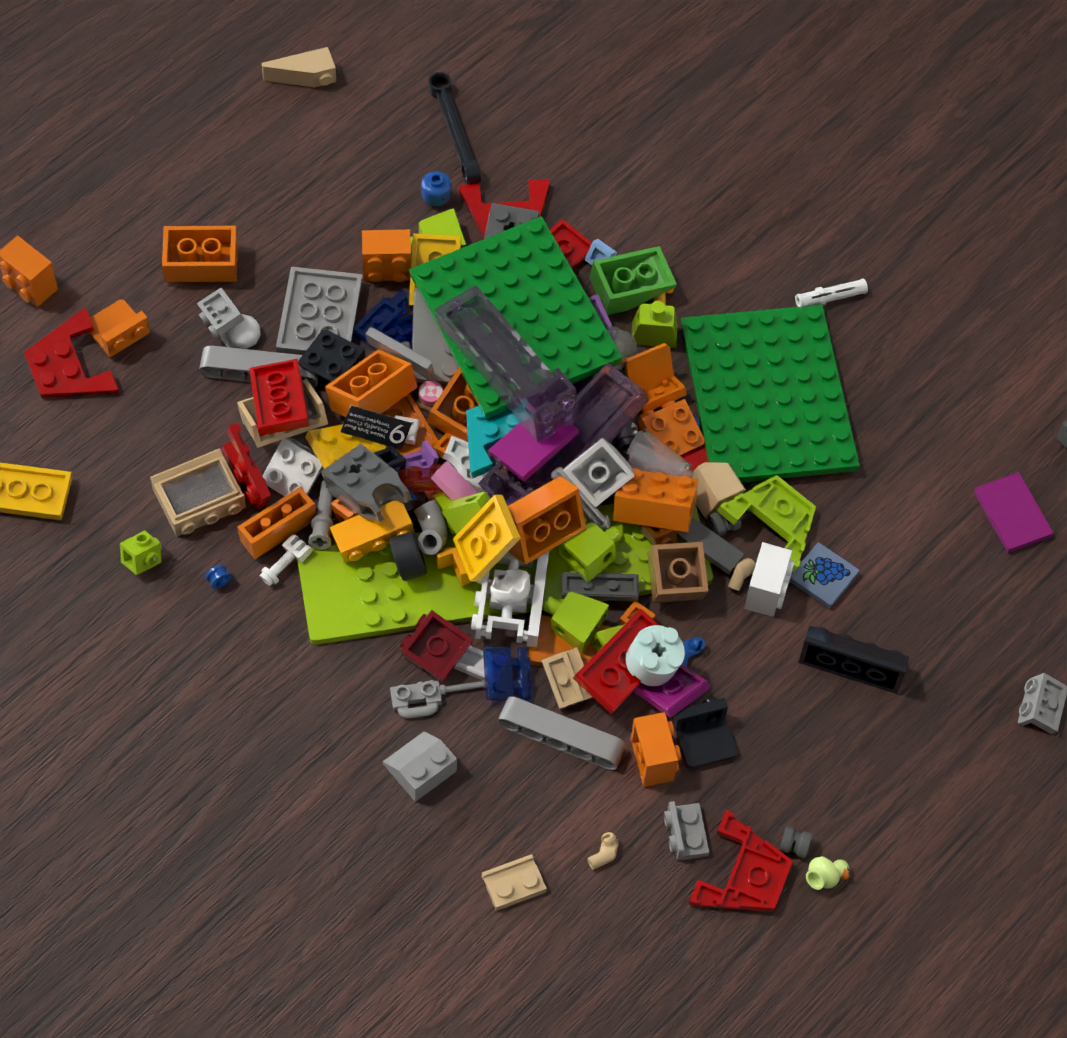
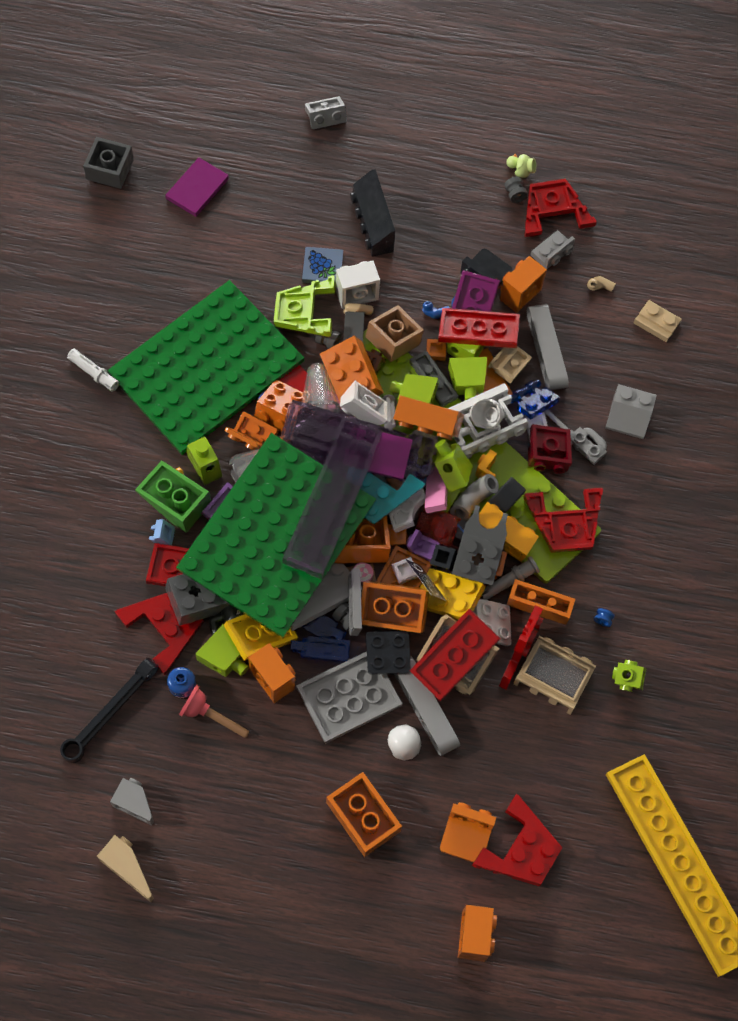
camera: 125 degrees left, 5 degrees up
(220, 313) = (407, 757): light grey bracket -> none
(295, 549) = (577, 586): white hinge -> none
(333, 598) = (567, 529): none -> red wing
(355, 102) = (132, 800): none -> light grey slope
(405, 188) = (196, 705): none -> piece
(486, 538) = (472, 436): yellow plate -> none
(655, 655) = (469, 304): light aqua brick -> none
(715, 486) = (307, 349): tan slope -> none

